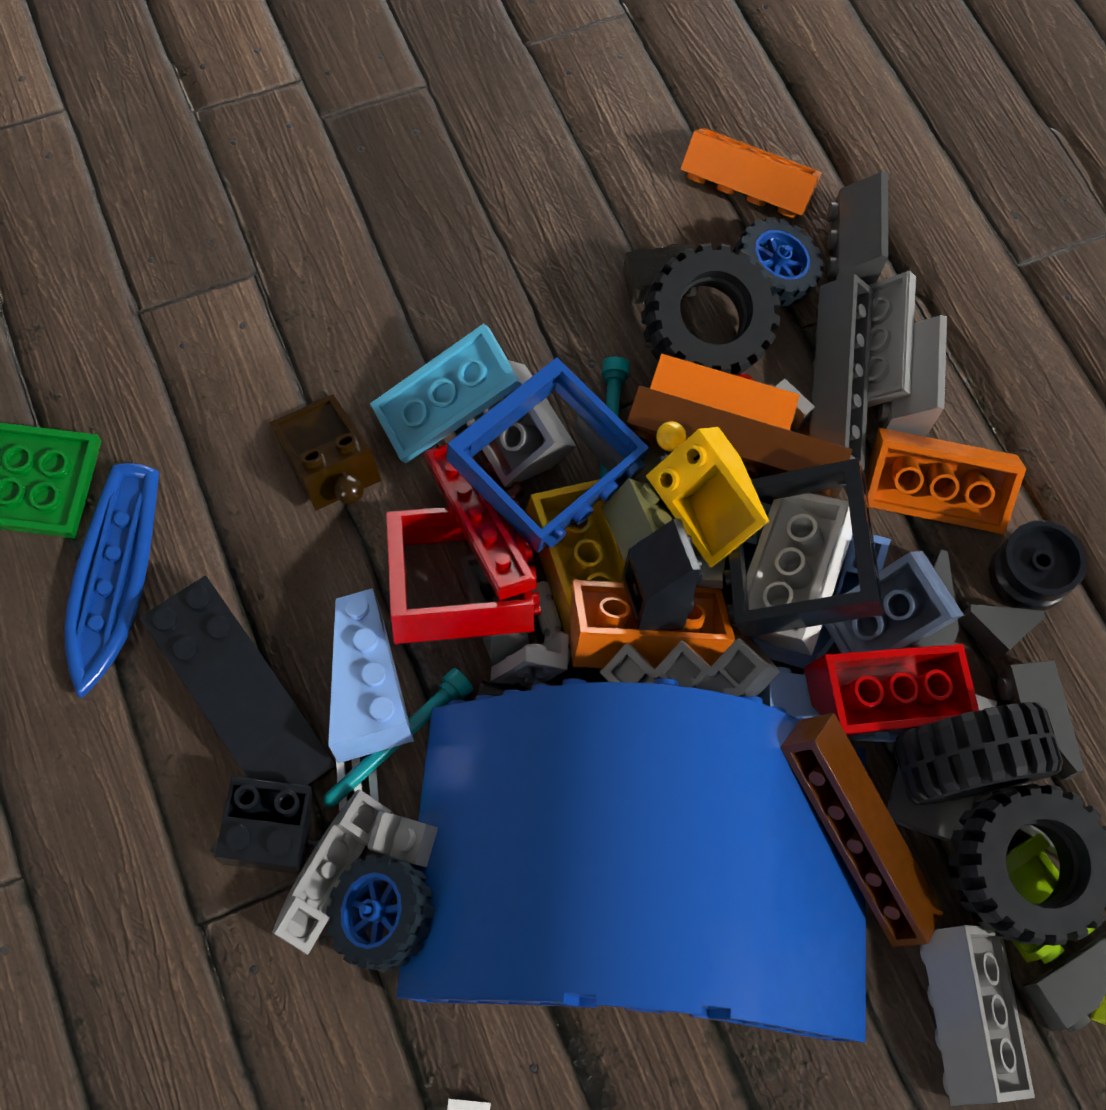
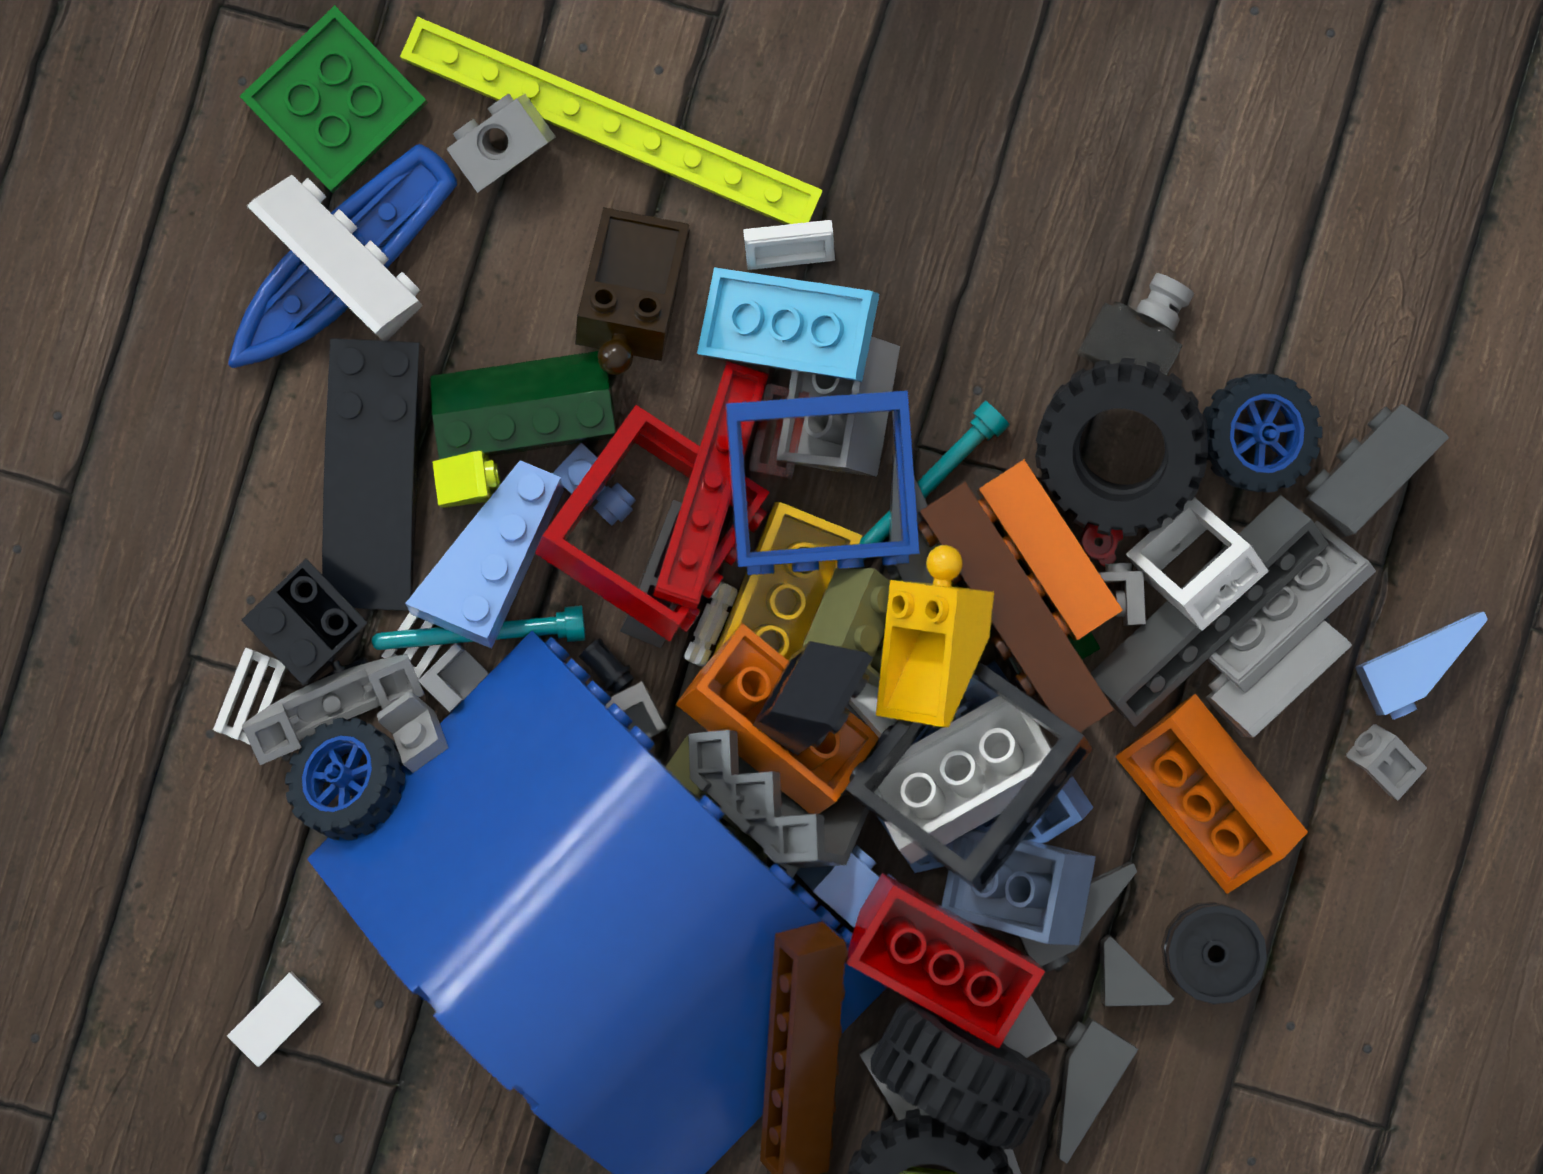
camera: 45 degrees right, 20 degrees up
(102, 562) = (337, 256): none -> white slope
(172, 442) = (525, 135): none -> light grey brick
(231, 370) = (612, 124): none -> neon yellow plate
(255, 883) = (235, 688): none -> white tile
(306, 641) = (465, 479): none -> neon yellow slope
(312, 575) = (522, 406): none -> dark green slope
(401, 785) = (453, 677): none -> light grey panel
(406, 356) = (789, 244): none -> white tile
(420, 588) = (613, 502): none -> medium blue plate
(534, 663) = (662, 670): light grey bracket -> none
(657, 231) = (1164, 301): none -> light grey wheel
(750, 171) = (1338, 299): orange slope -> none
(839, 353) = (1200, 599): none -> white window
(983, 324) = (1413, 669): none -> light blue slope
(1016, 383) = (1386, 760): none -> light grey bracket

